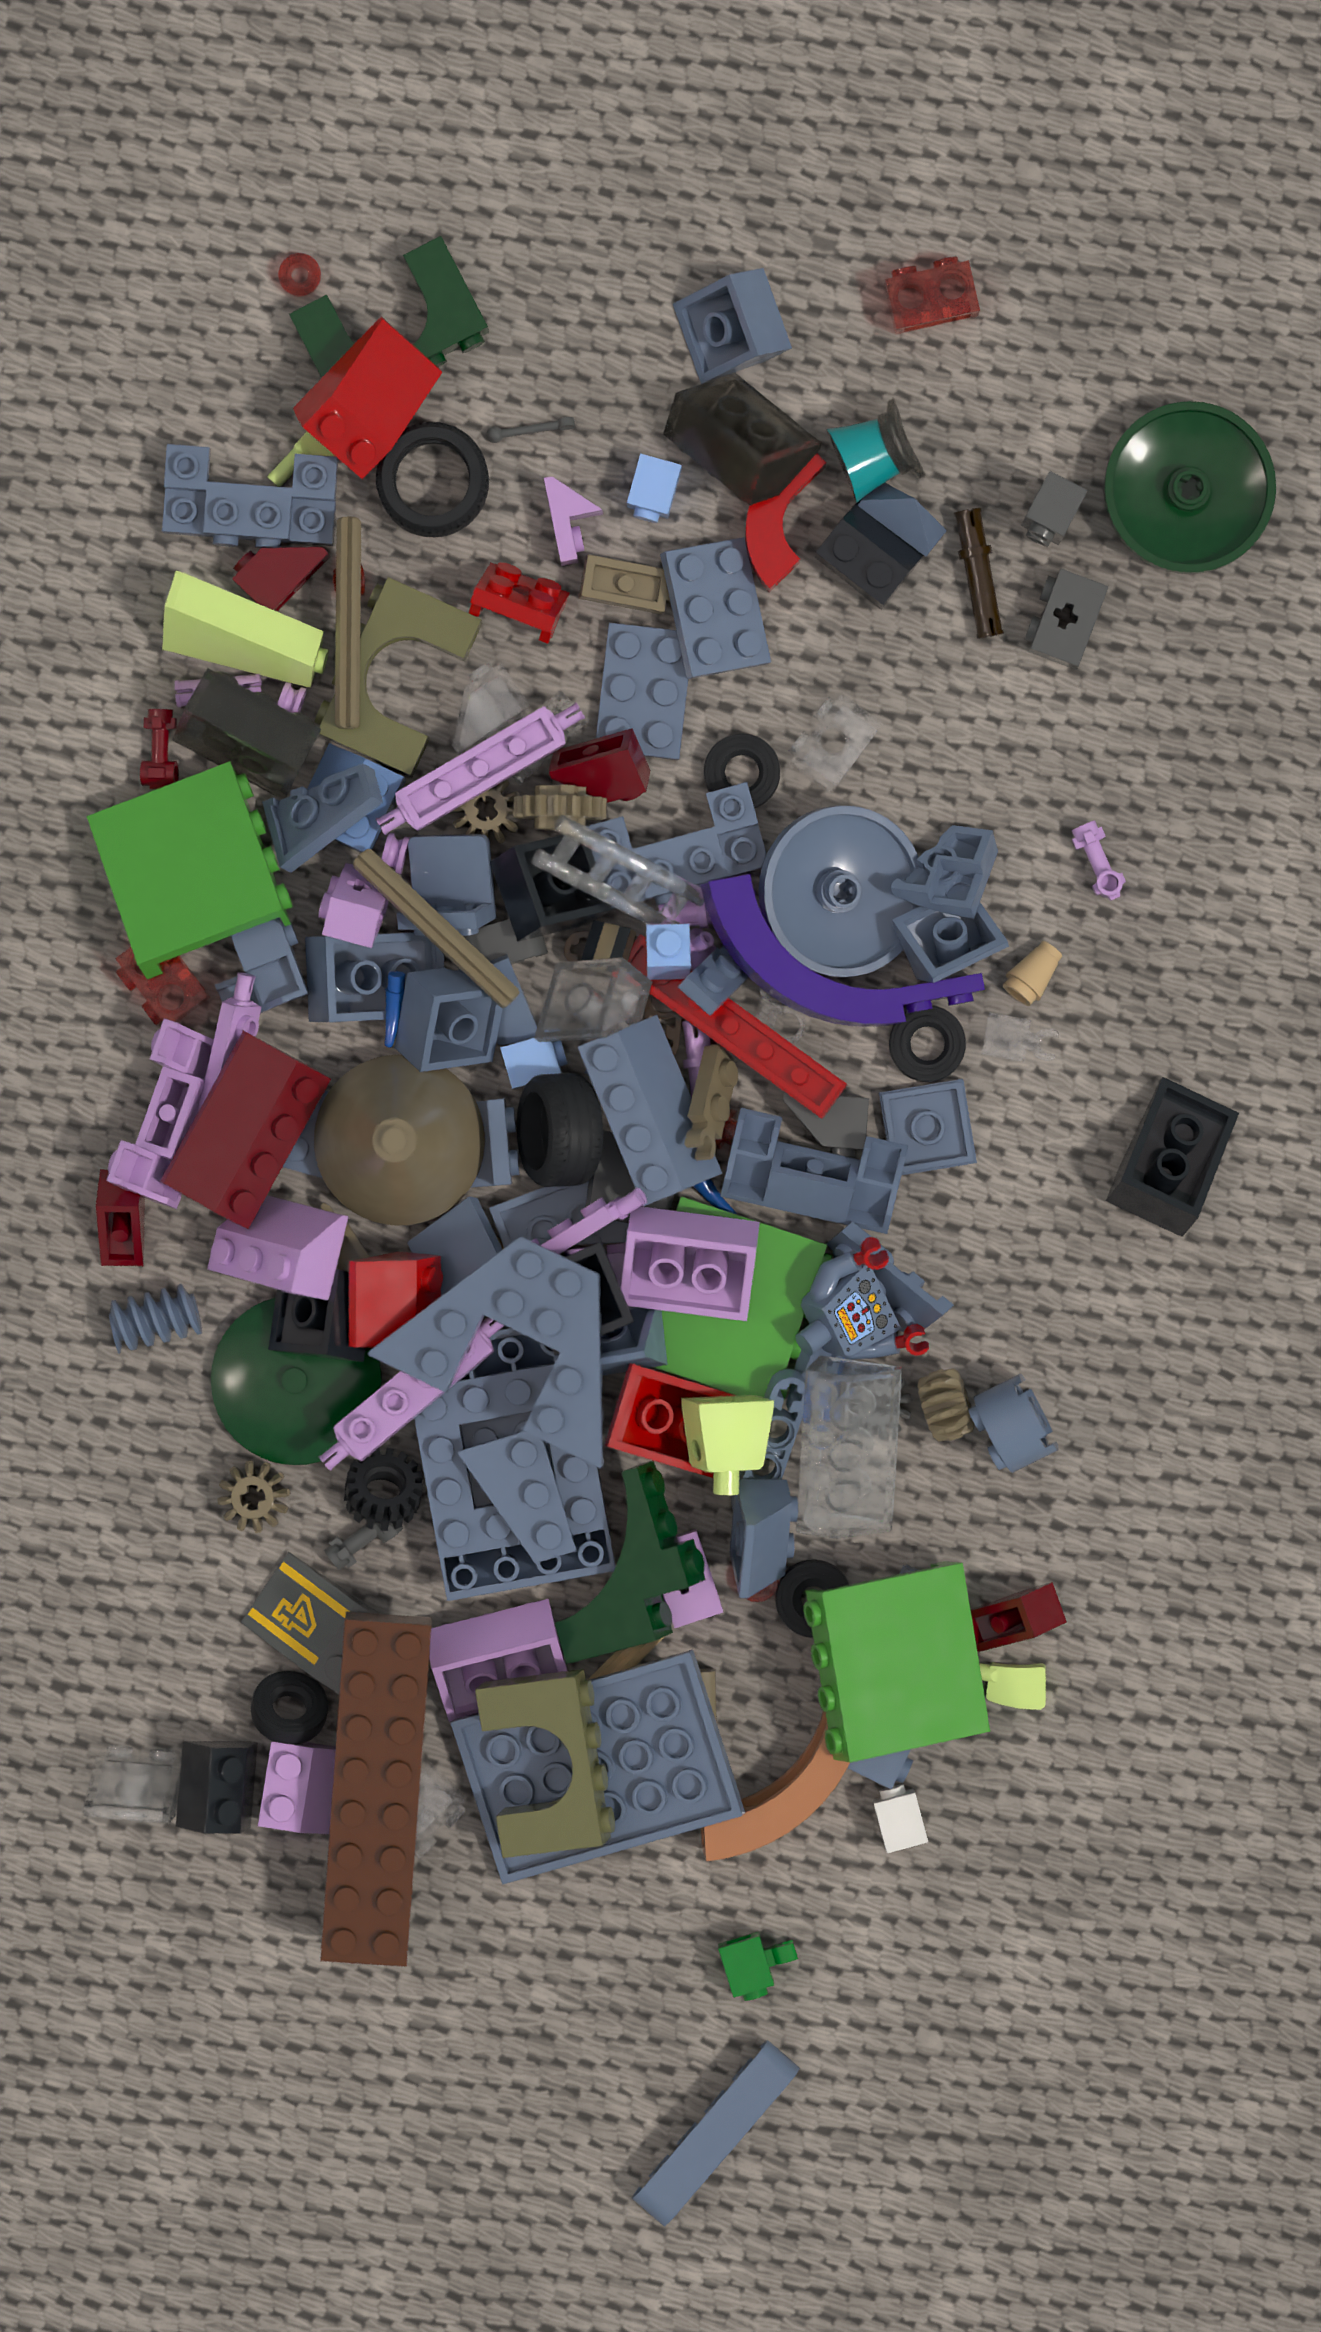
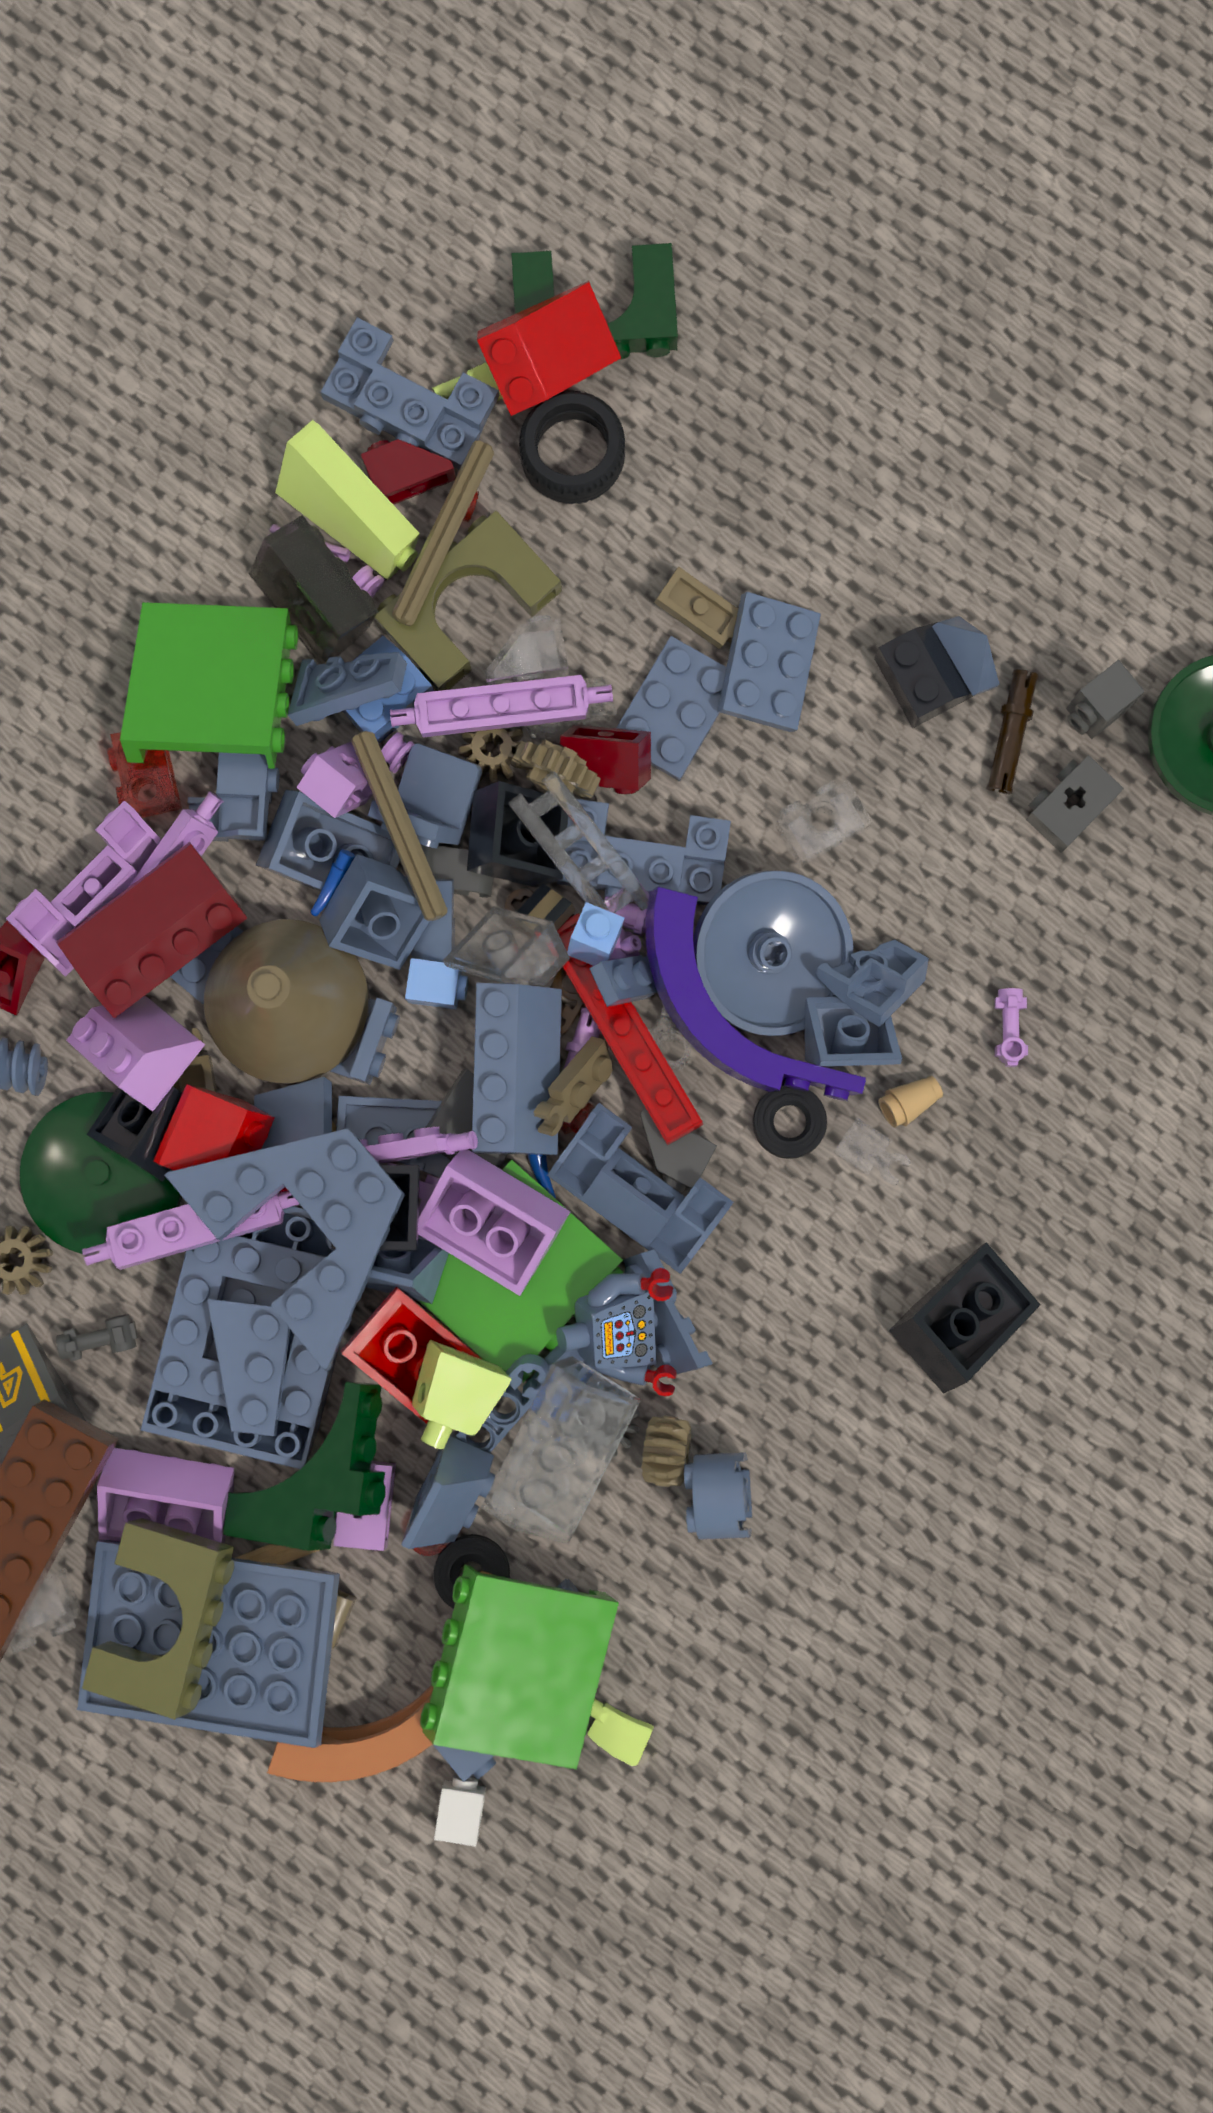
camera: 30 degrees right, 5 degrees down
(159, 771) = (227, 592): dark red bar -> none
(296, 261) = (536, 220): clear red plate -> none
(379, 1509) = (125, 1324): black tyre -> none
(496, 434) = (707, 452): dark grey hinge -> none
(520, 598) = (596, 570): red piece -> none
(559, 1129) = (429, 1052): black tyre -> none
(565, 507) = (676, 522): lavender slope -> none
(653, 488) = (760, 536): light blue brick -> none
(716, 2134) = (166, 2030): sand blue beam -> none
(732, 324) = (890, 427): sand blue slope -> none
(740, 437) = (854, 522): clear smoke slope -> none
(749, 1964) = (266, 1883): green brick -> none
(750, 746) = (748, 796): black tyre -> none
(764, 534) = (837, 629): red arch -> none
(874, 451) = (967, 585): teal hat -> none
(932, 1124) = (763, 1195): sand blue tile -> none
(935, 307) = (1073, 489): clear red brick -> none
(1017, 1617) = (647, 1673): dark red slope -> none

